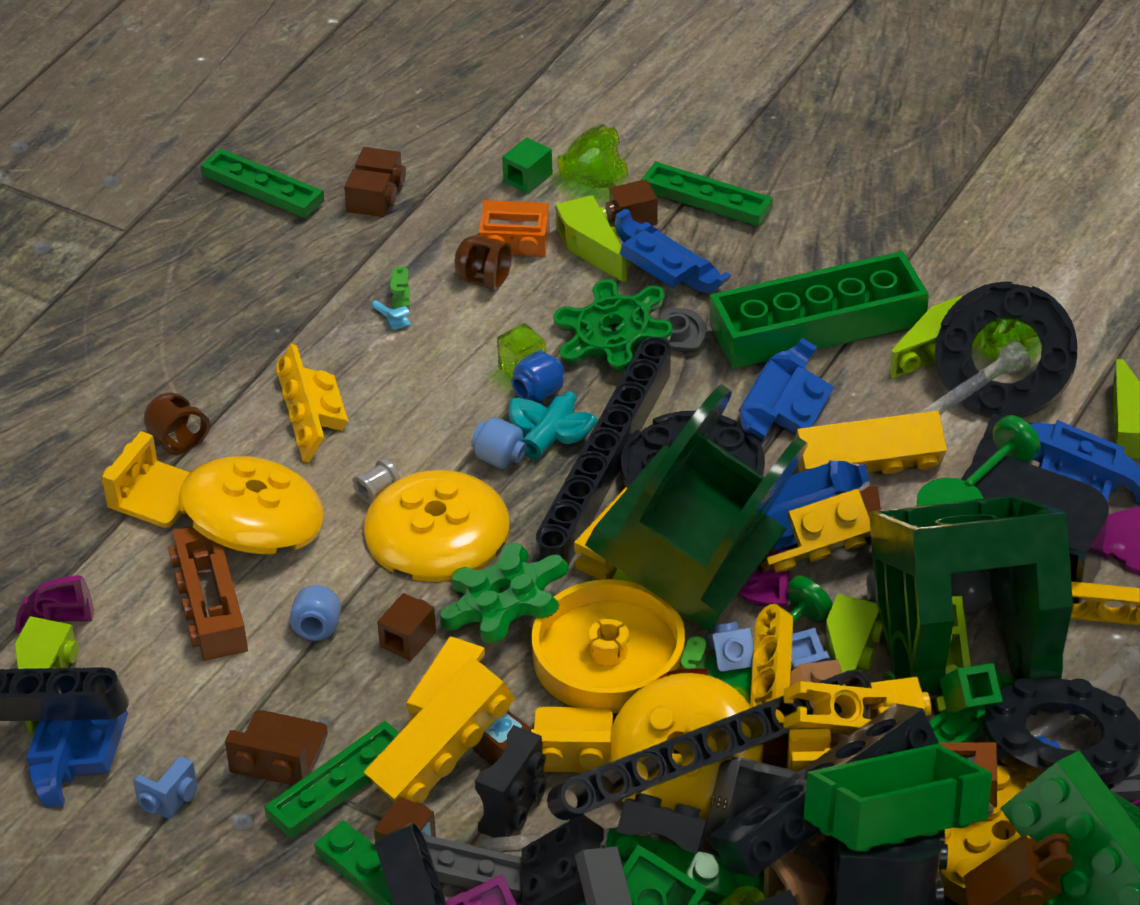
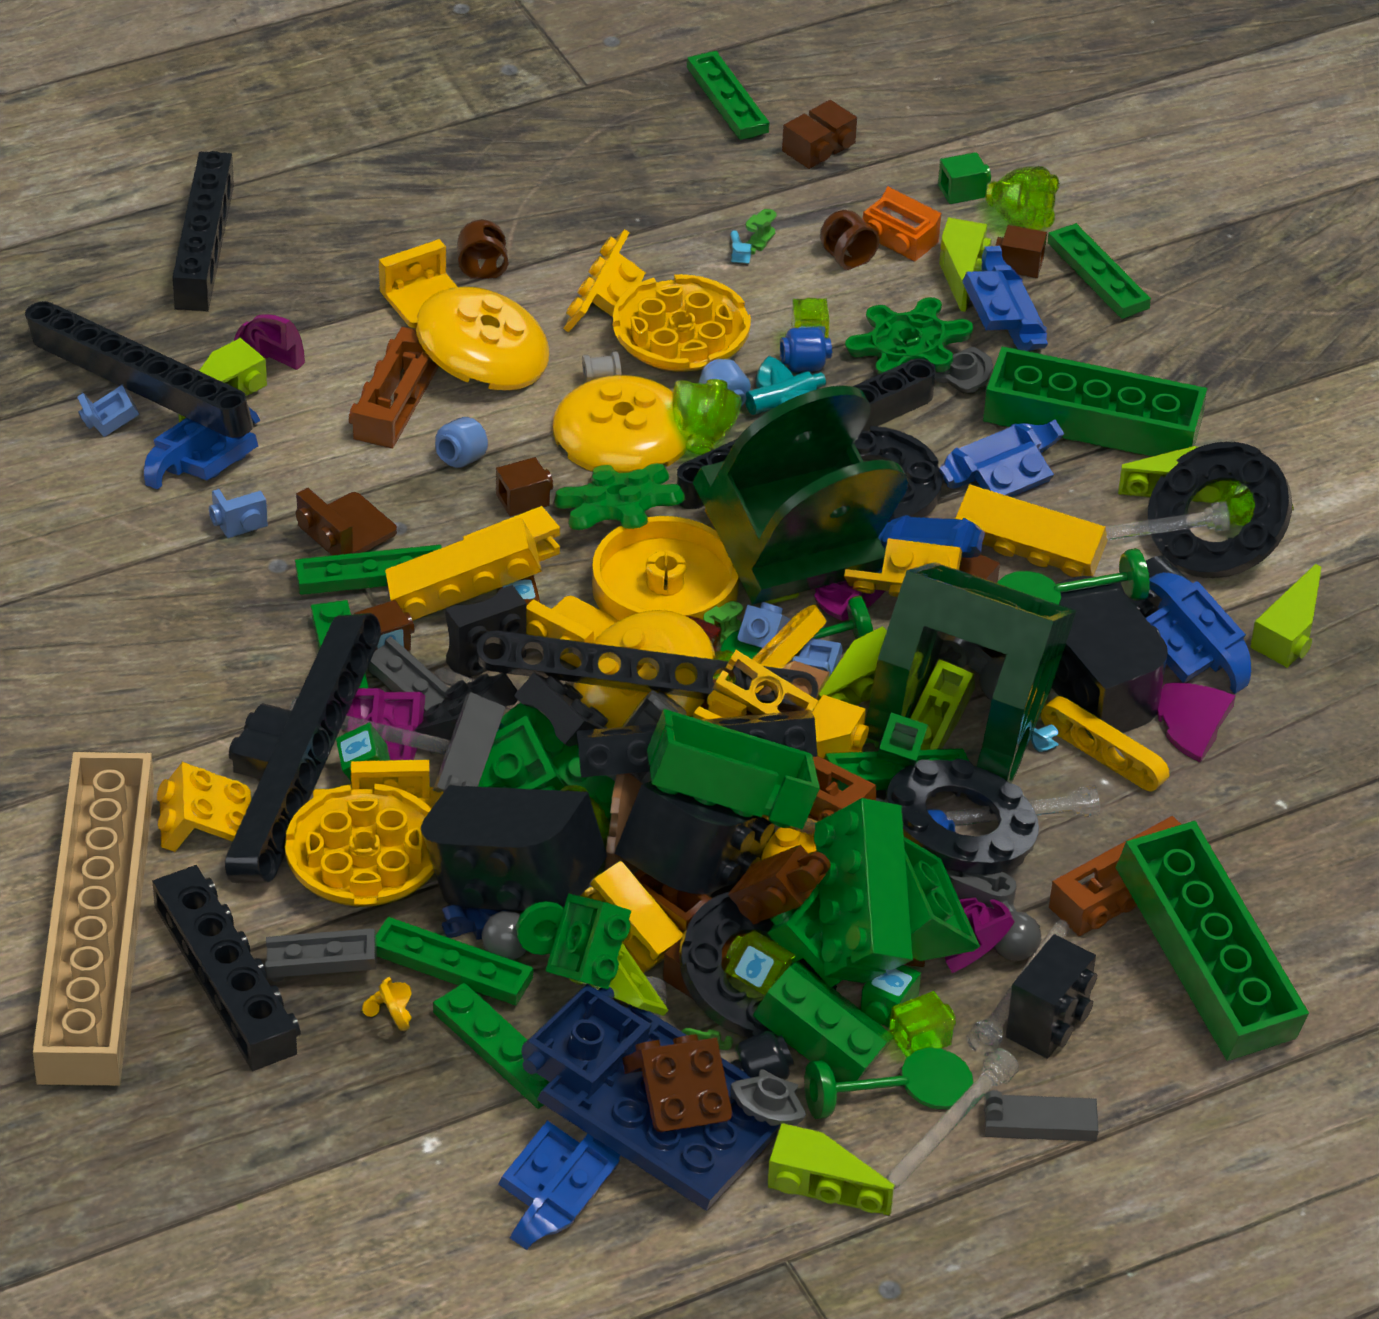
camera: 30 degrees right, 0 degrees up
(414, 405) = (681, 322): none -> yellow brick
(511, 478) = (704, 413): none -> clear neon green piece

